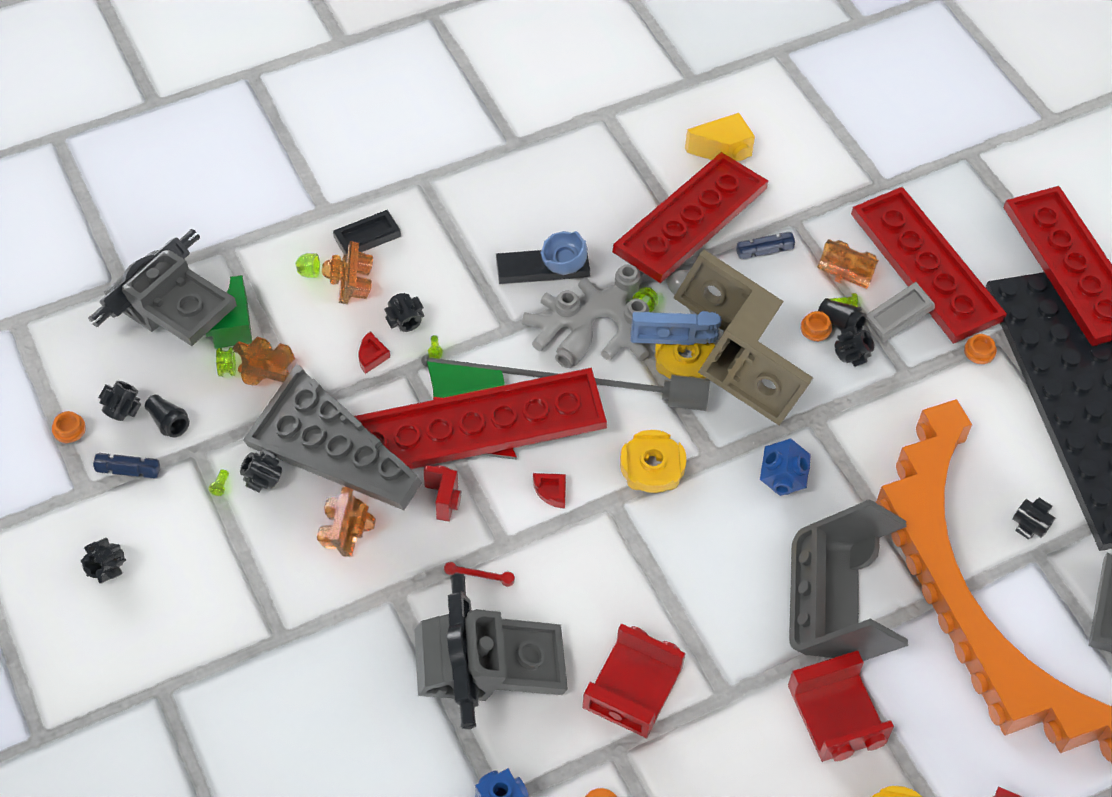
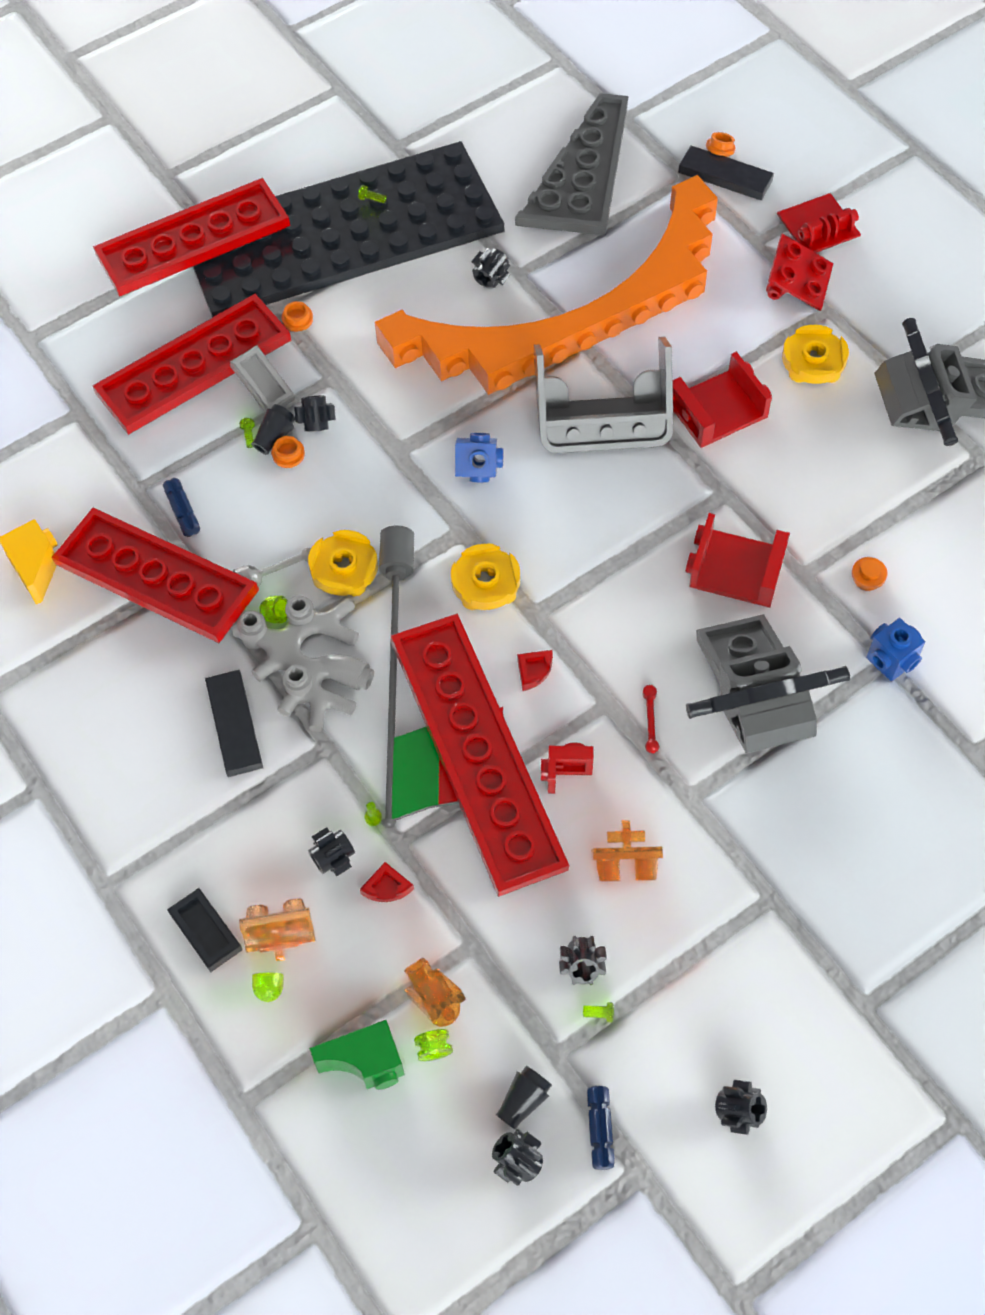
camera: 95 degrees left, 5 degrees up
(68, 427) = (561, 1218): orange plate -> none
(167, 294) = (353, 1137): dark grey piece -> none
(324, 438) = (528, 903): dark grey wing -> none
(564, 252) = (229, 686): medium blue hair -> none
(675, 328) = (324, 563): medium blue hinge -> none
(738, 357) = (333, 496): dark tan bracket -> none
(848, 263) = (205, 427): clear orange hips -> none

